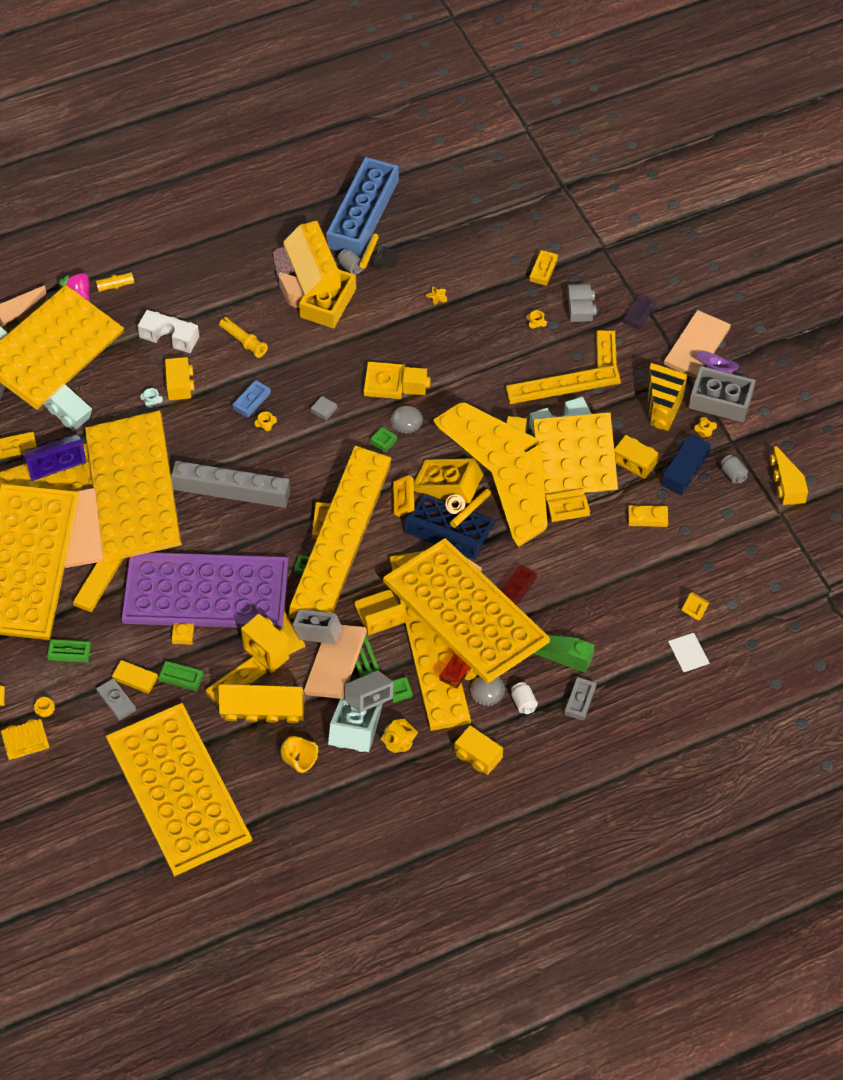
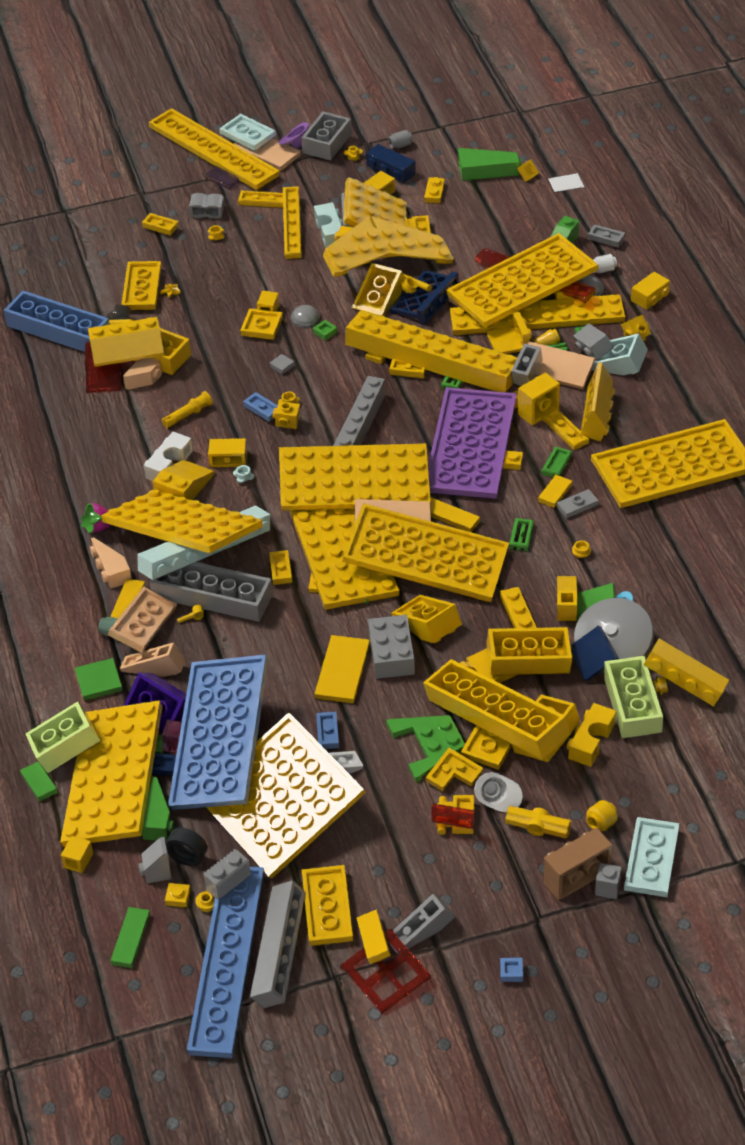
camera: 80 degrees left, 10 degrees down
(24, 739) = (616, 560): yellow brick -> none
(54, 457) = (313, 522): dark purple slope -> none
(114, 282) = (92, 494): yellow pin -> none
(137, 348) = (182, 479): none -> yellow slope
(233, 419) = (286, 415): none -> yellow brick
(308, 753) = (644, 391): yellow hair -> none
(382, 651) = (548, 338): none -> yellow cone
(403, 496) = (395, 314): yellow plate -> none
(438, 268) = (142, 285): none -> yellow plate
(664, 395) = (323, 163): yellow slope -> none
(687, 295) = (214, 148): none -> yellow plate
(700, 560) = (487, 163): none -> bright green slope
(715, 318) = (247, 132): none -> light aqua plate
(791, 482) = (413, 114): yellow slope -> none

